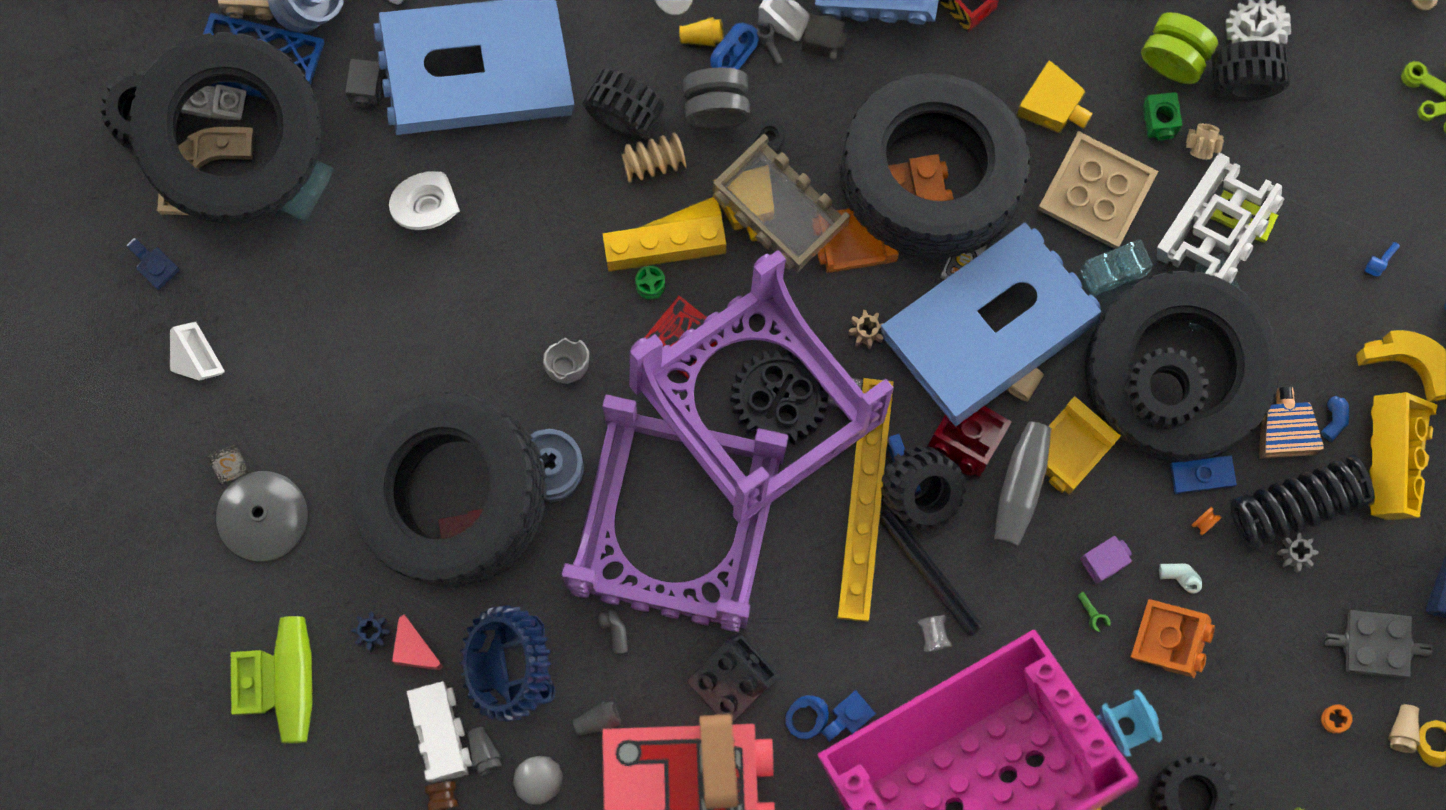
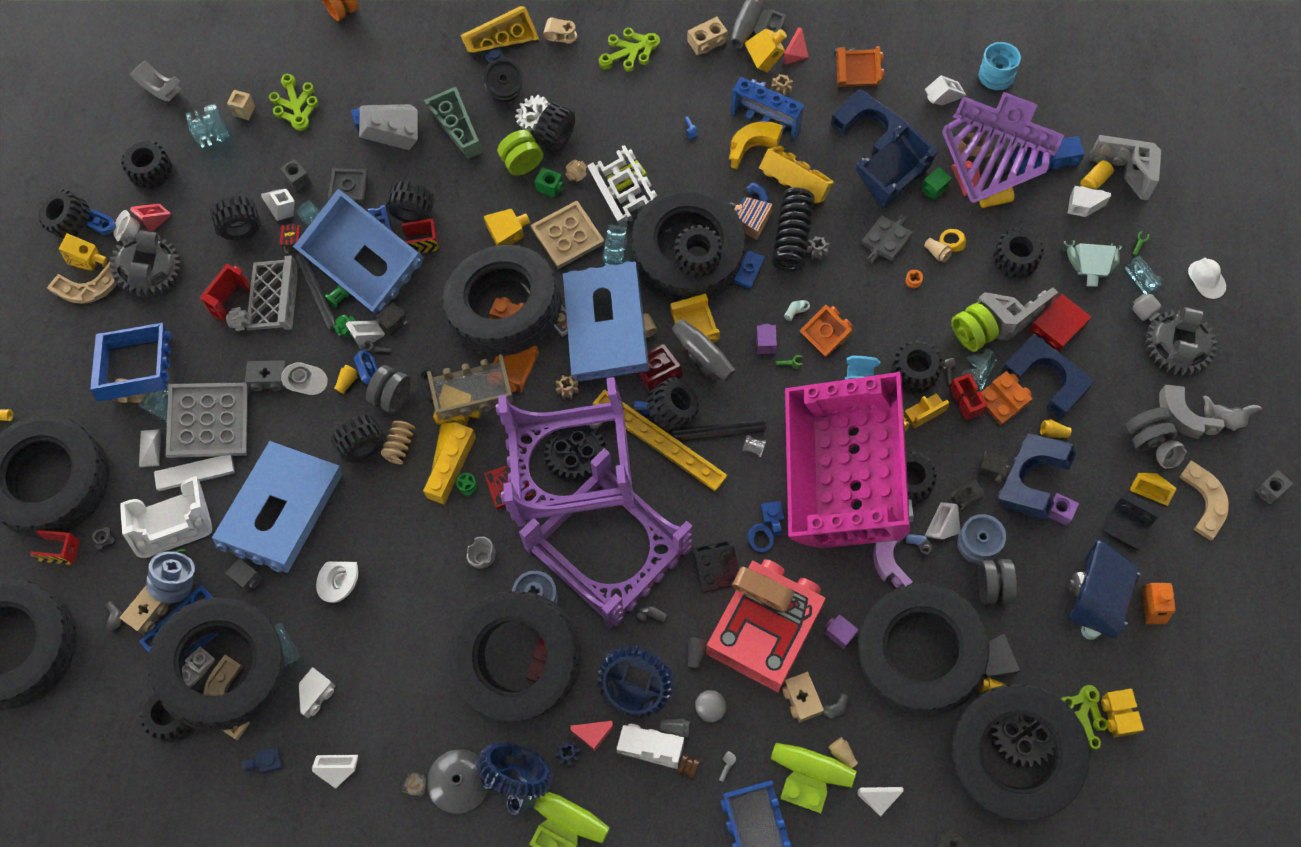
camera: 55 degrees left, 10 degrees down
(268, 265) = (313, 691): none -> white slope
(296, 552) = (534, 774): none -> dark blue piece
(1206, 521) = (775, 280): orange bush -> none

